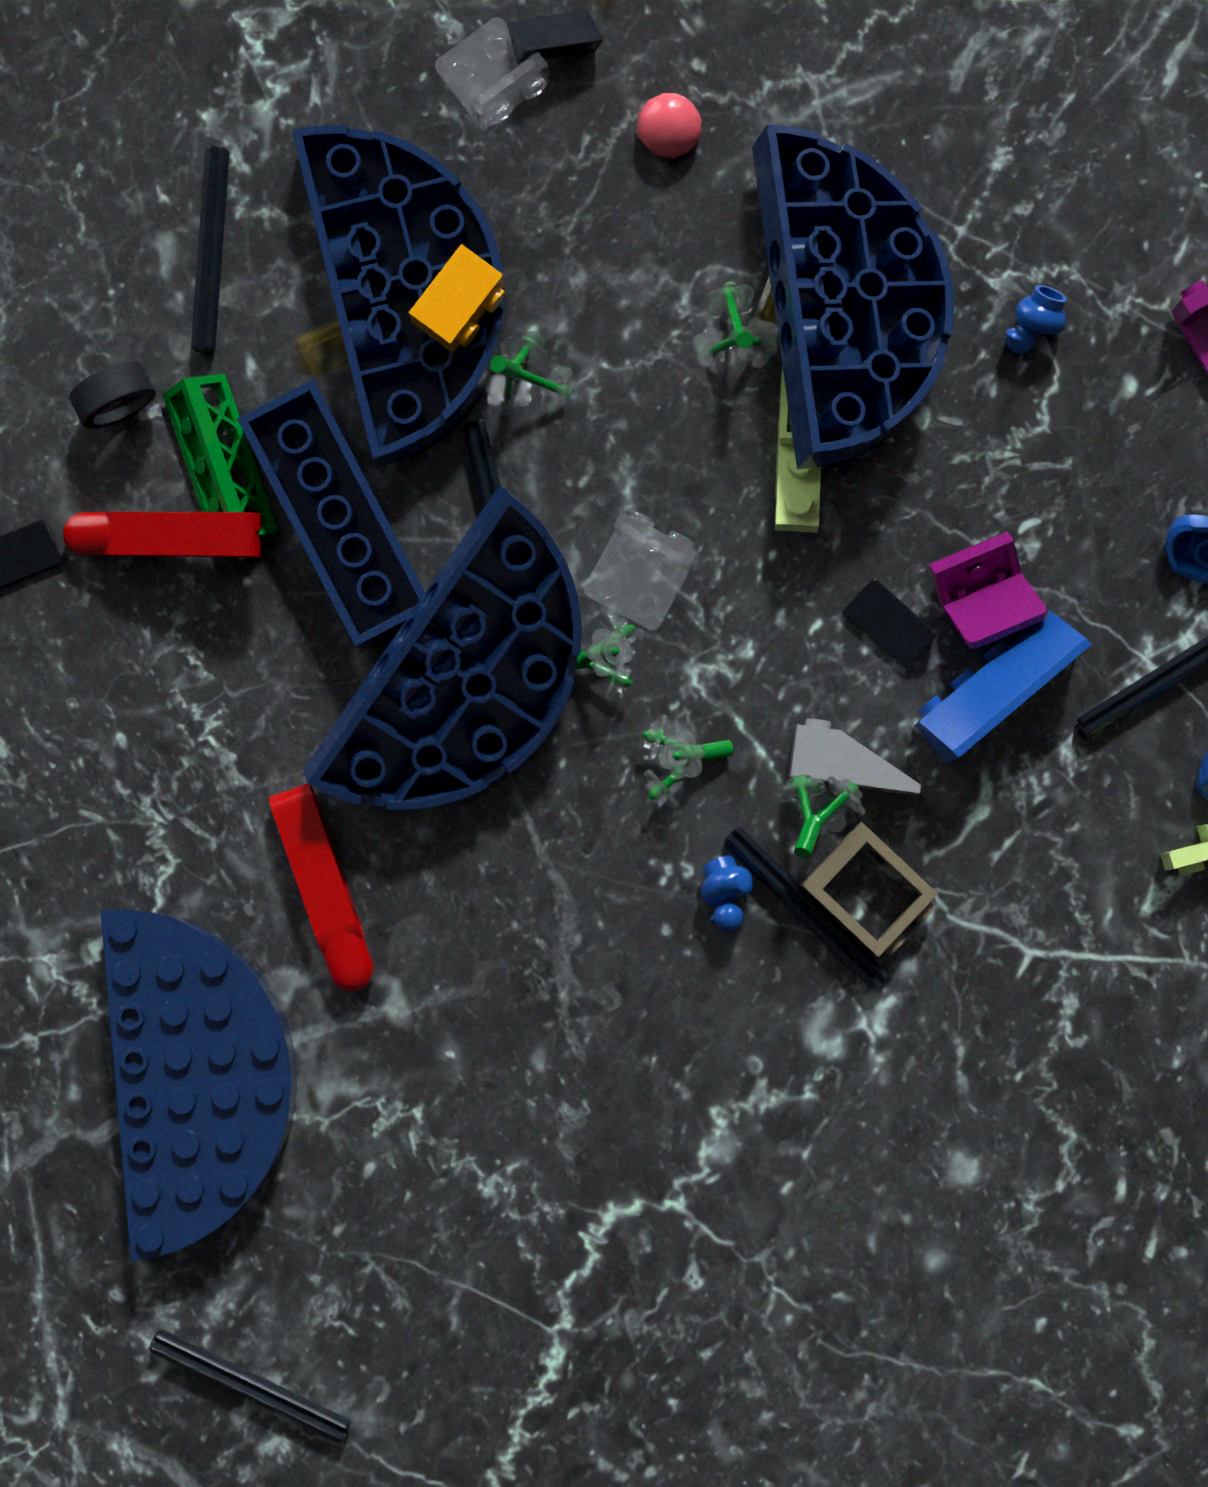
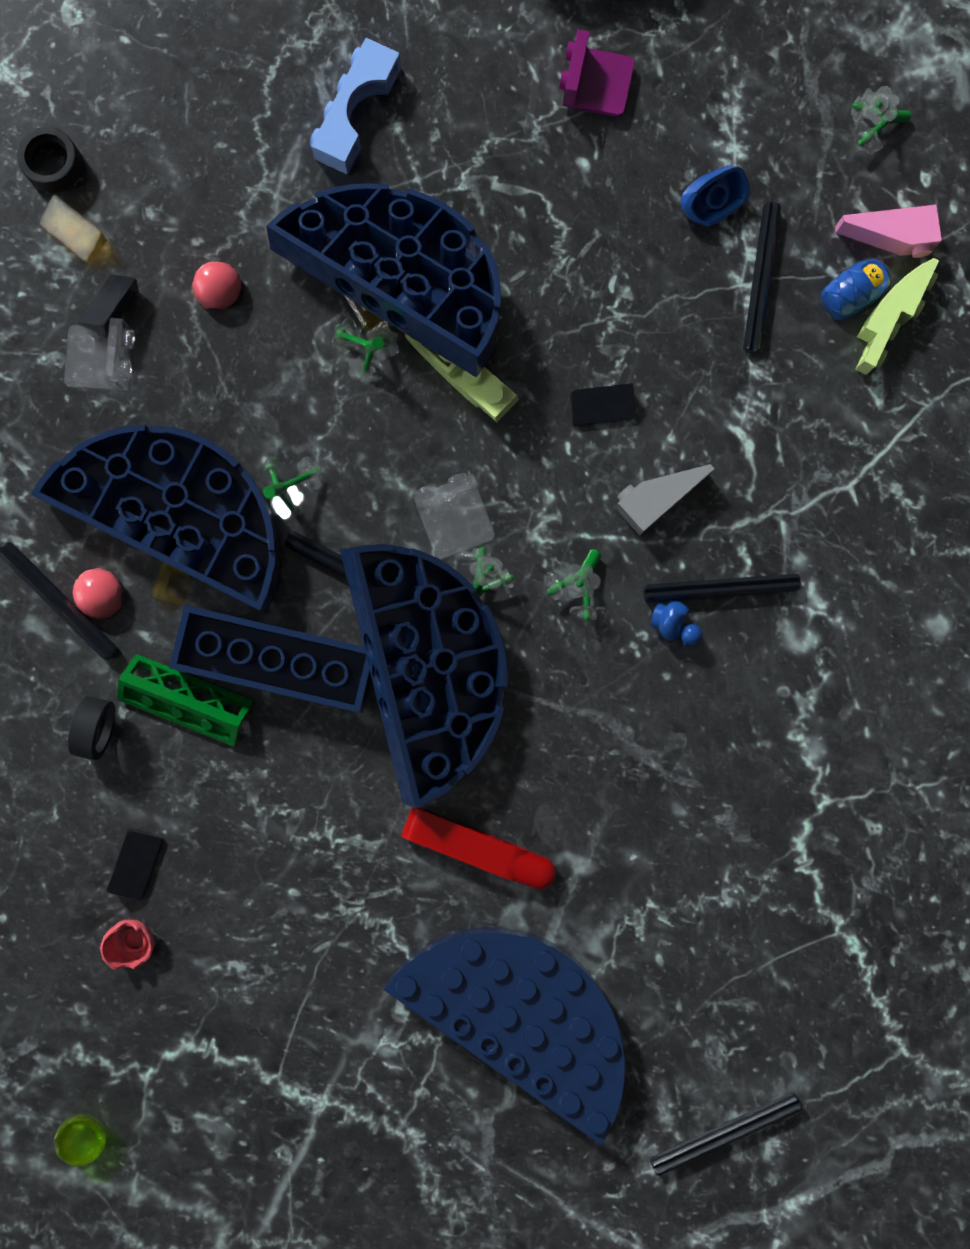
camera: 55 degrees left, 0 degrees up
(164, 534) = (198, 766): red piece -> none
(251, 282) = (97, 593): none -> coral hair
(458, 299) = (212, 482): light orange brick -> none
(821, 807) = (676, 530): clear plant -> none
(837, 859) = (711, 549): dark tan window -> none
(986, 591) = (633, 336): magenta bracket -> none
(1000, 686) = (692, 373): blue slope -> none
(1030, 88) = (371, 74): none -> light blue arch
(1039, 314) = (501, 175): blue animal -> none

